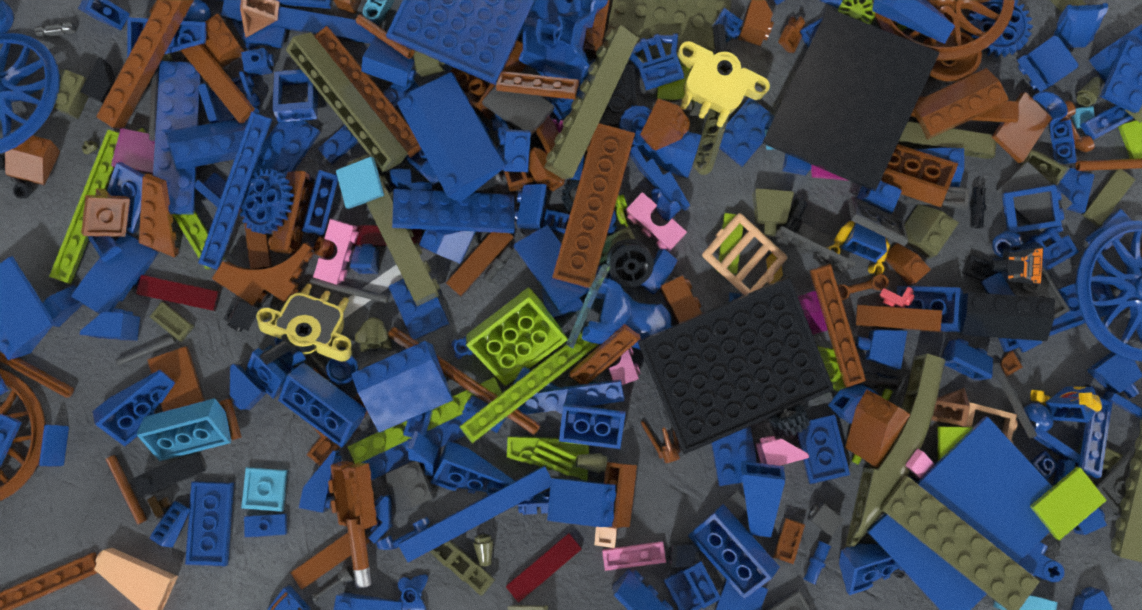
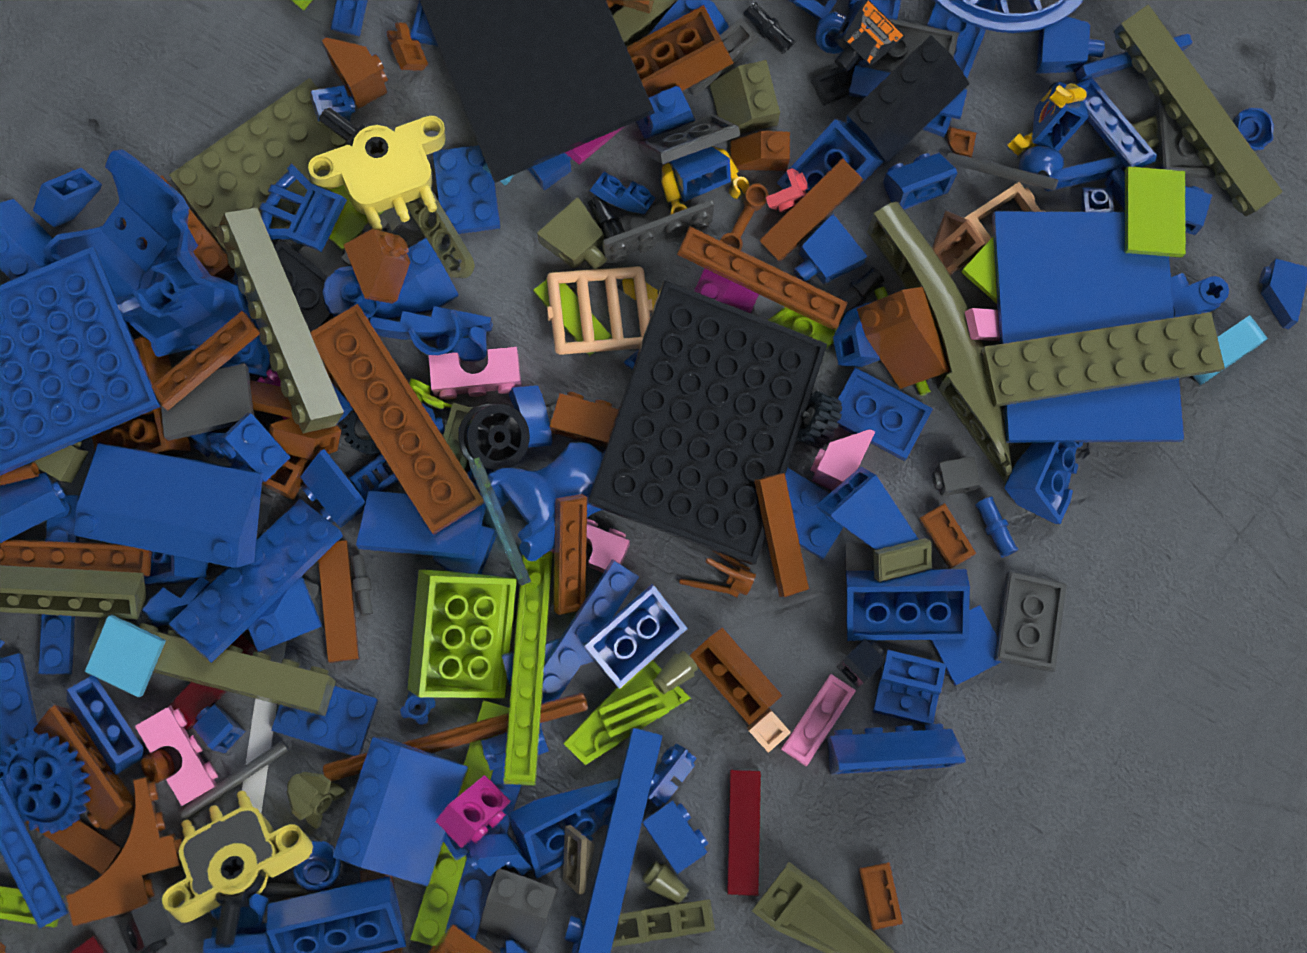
camera: 55 degrees left, 5 degrees down
(432, 423) = (473, 811): none -> dark pink brick
(456, 495) = (577, 859): none -> dark tan slope
(510, 535) = (675, 836): none -> blue brick
(581, 502) = (708, 721): blue slope -> none
(648, 194) = (439, 351): none -> blue helmet
(711, 454) = (781, 534): none -> dark orange tile
(754, 529) = (902, 559): none -> olive tile
(819, 220) = (634, 198): none -> blue slope

